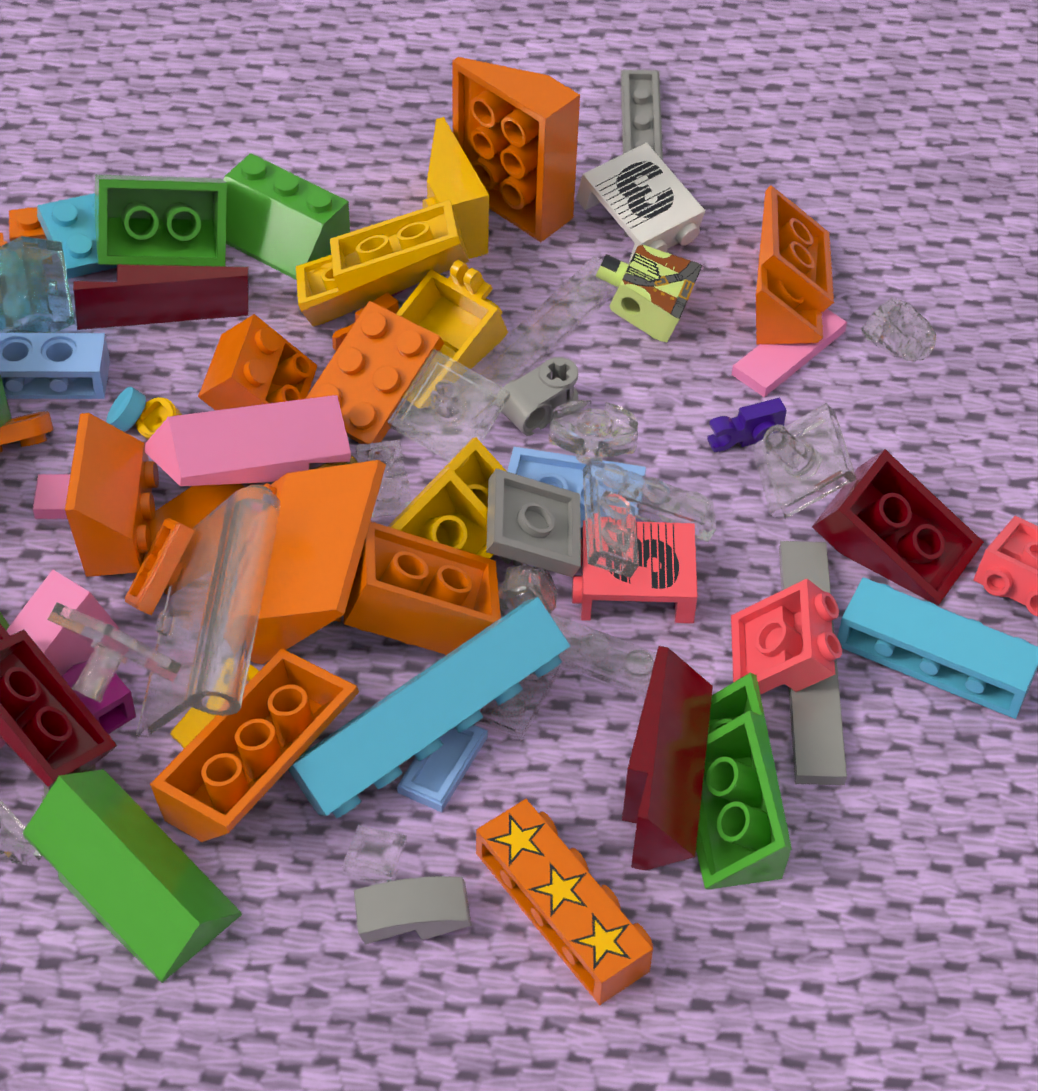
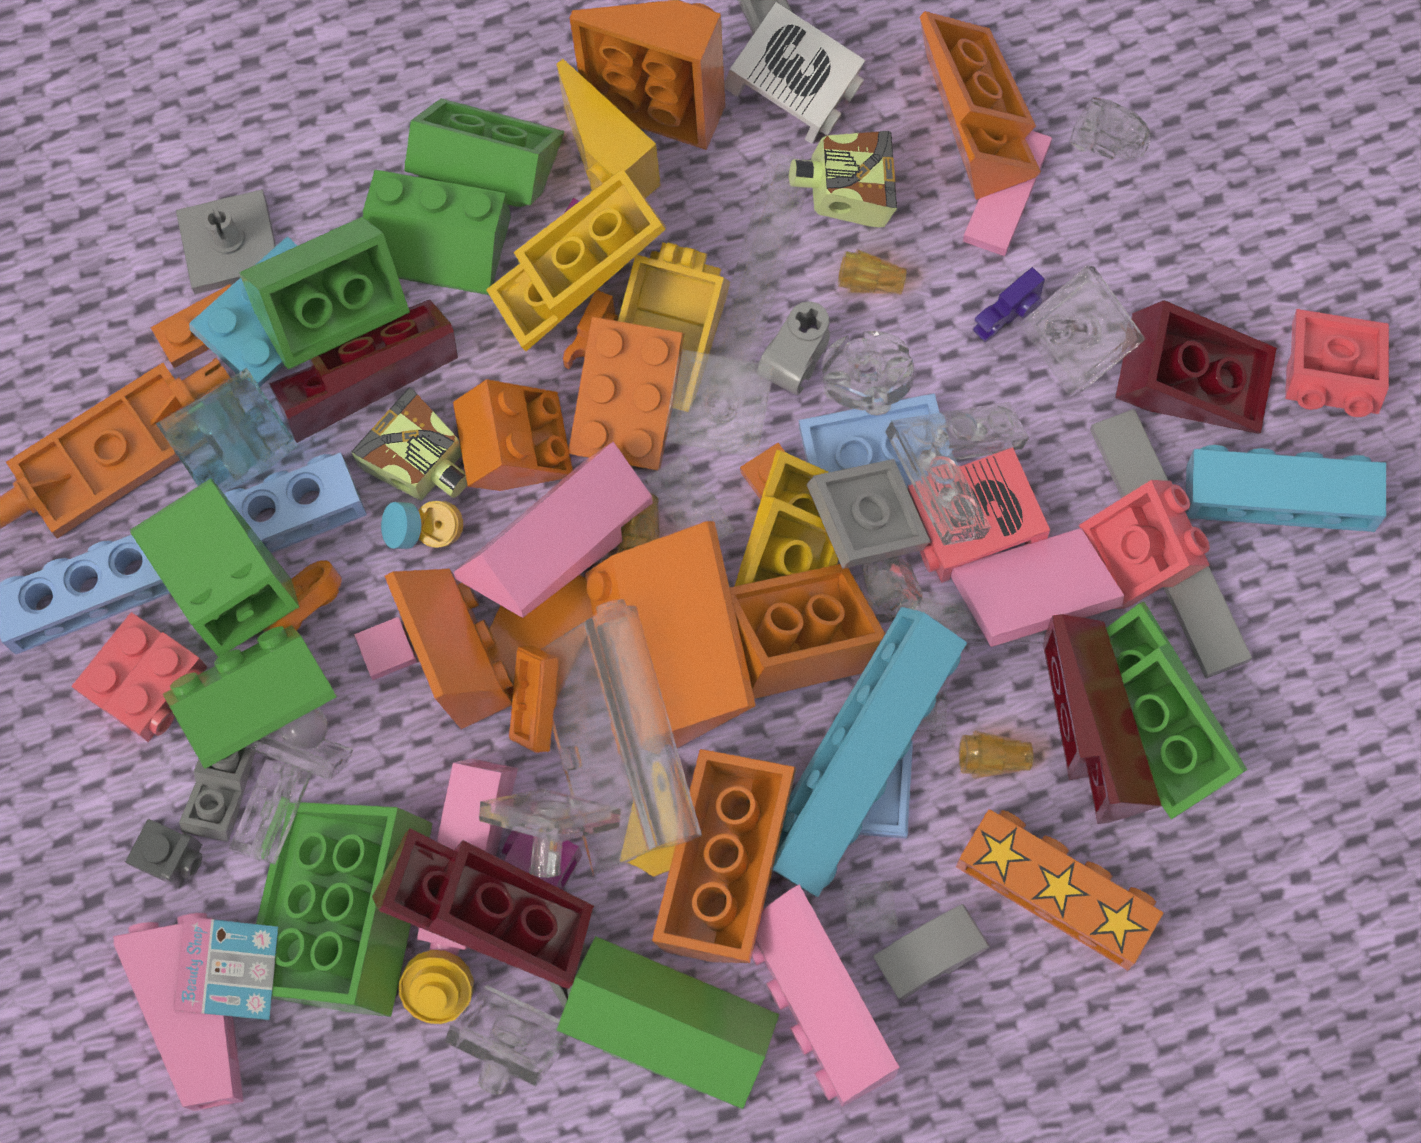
camera: 15 degrees left, 20 degrees up
(104, 160) = (225, 238): none -> light grey tile
(166, 357) = (412, 450): none -> torso
(282, 904) = (822, 1000): none -> bright pink slope
(370, 188) = (482, 150): none -> bright green slope
(557, 767) = (993, 755): none -> clear yellow cone
(629, 636) = (1025, 586): none -> bright pink tile
(634, 366) = (870, 274): none -> clear yellow cone

